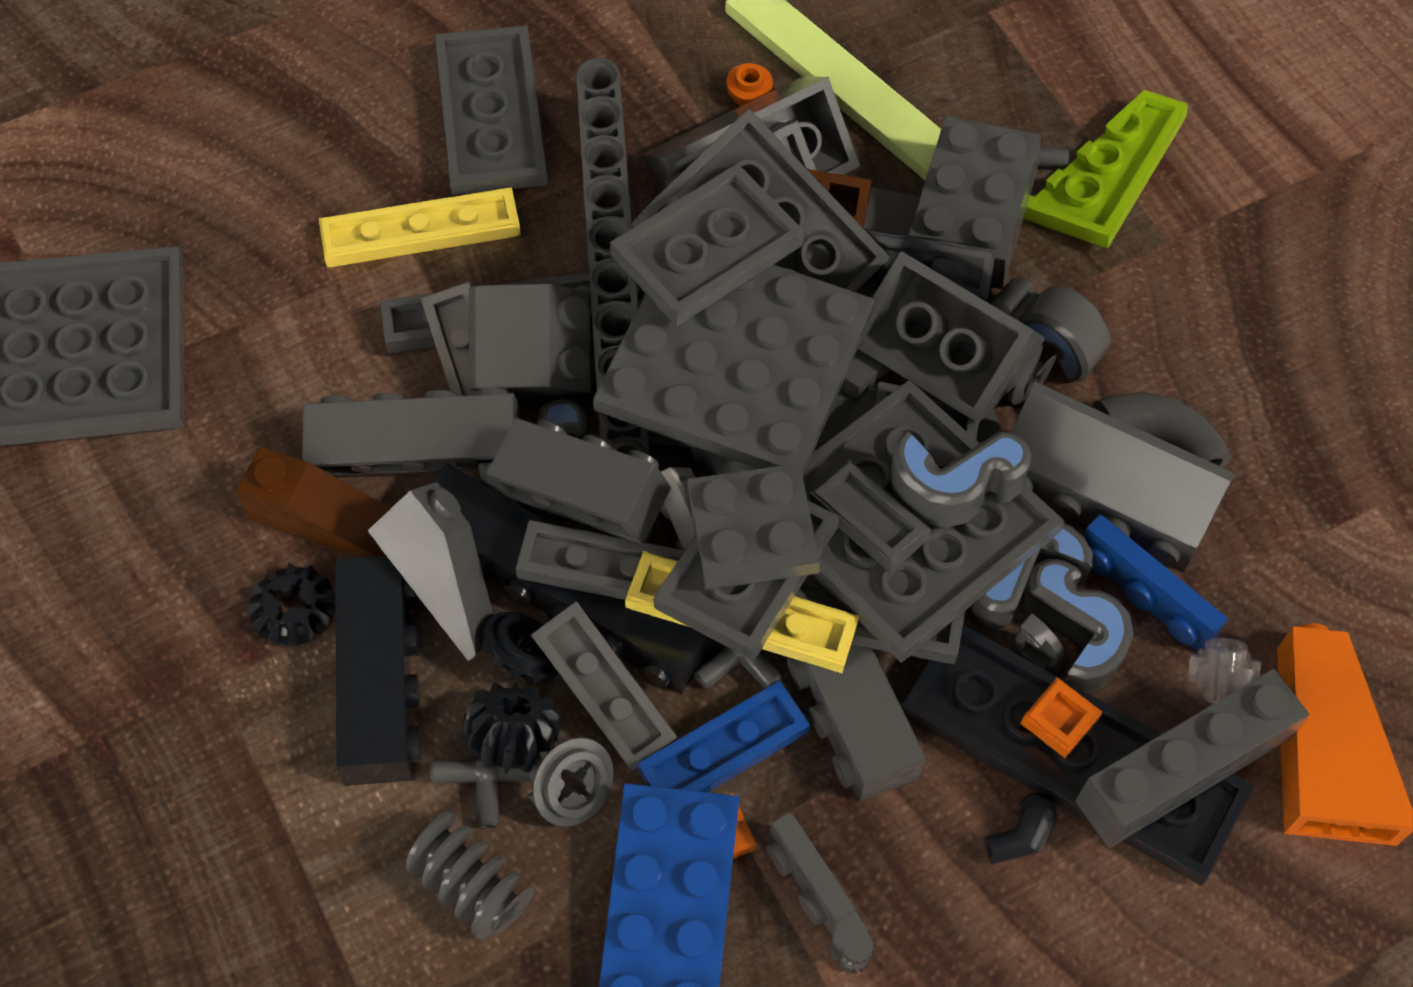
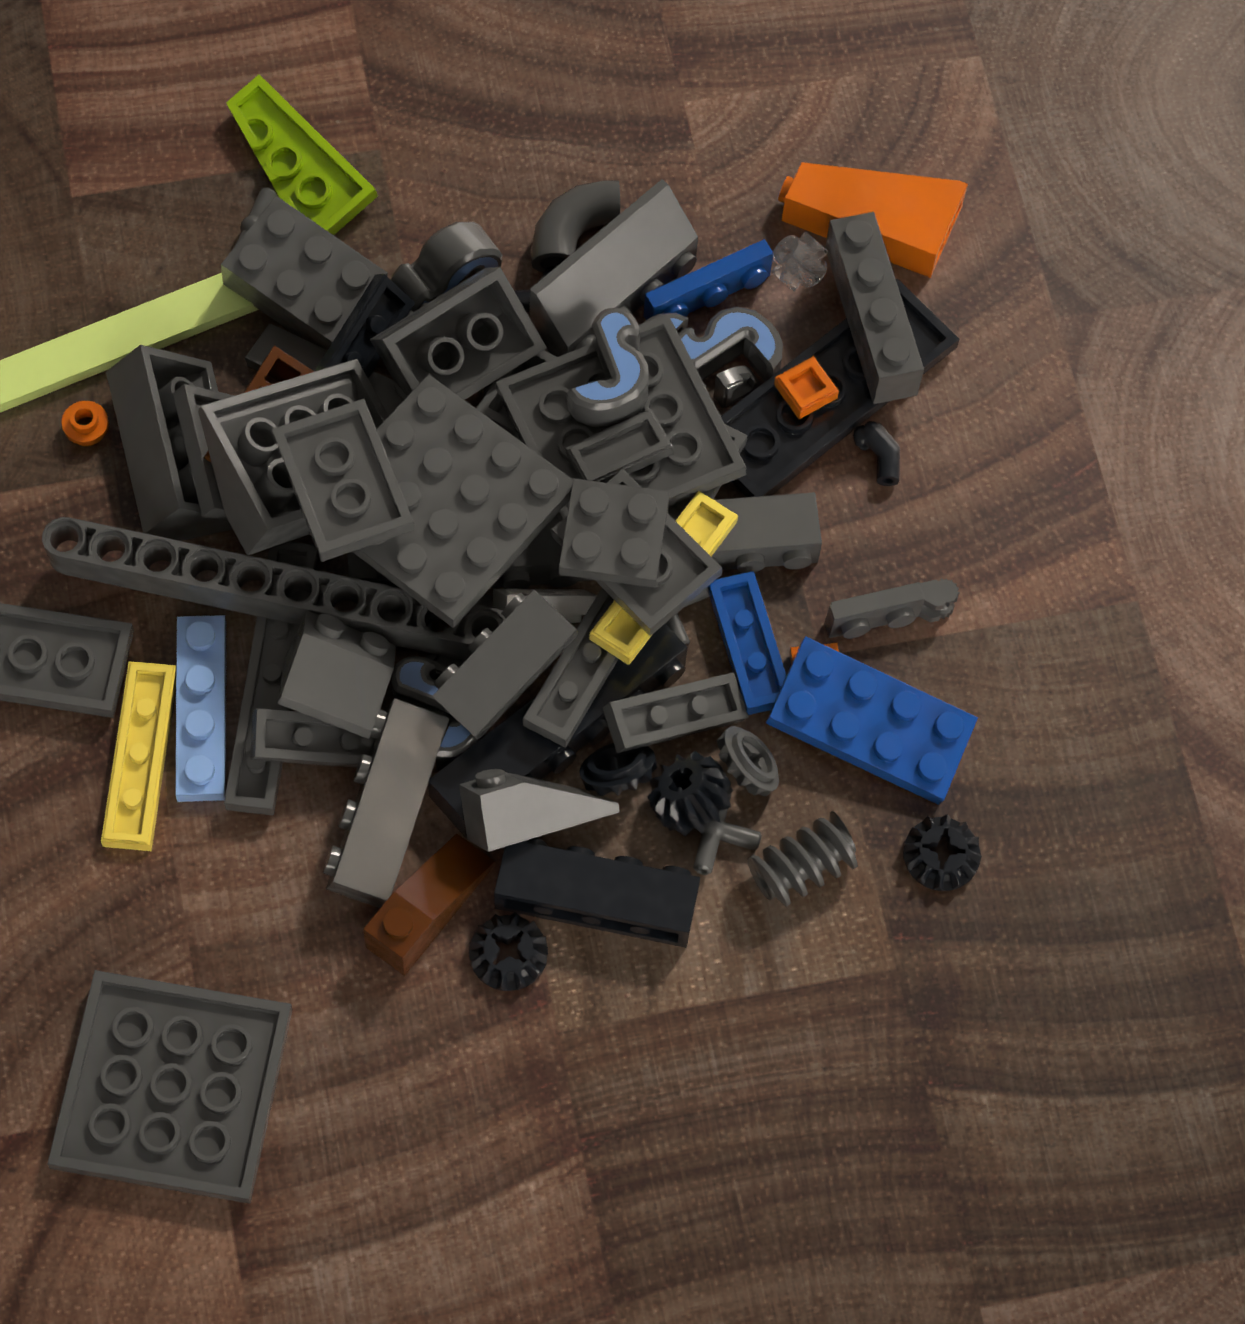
camera: 75 degrees left, 5 degrees up
(489, 258) = (201, 708): none -> light blue plate

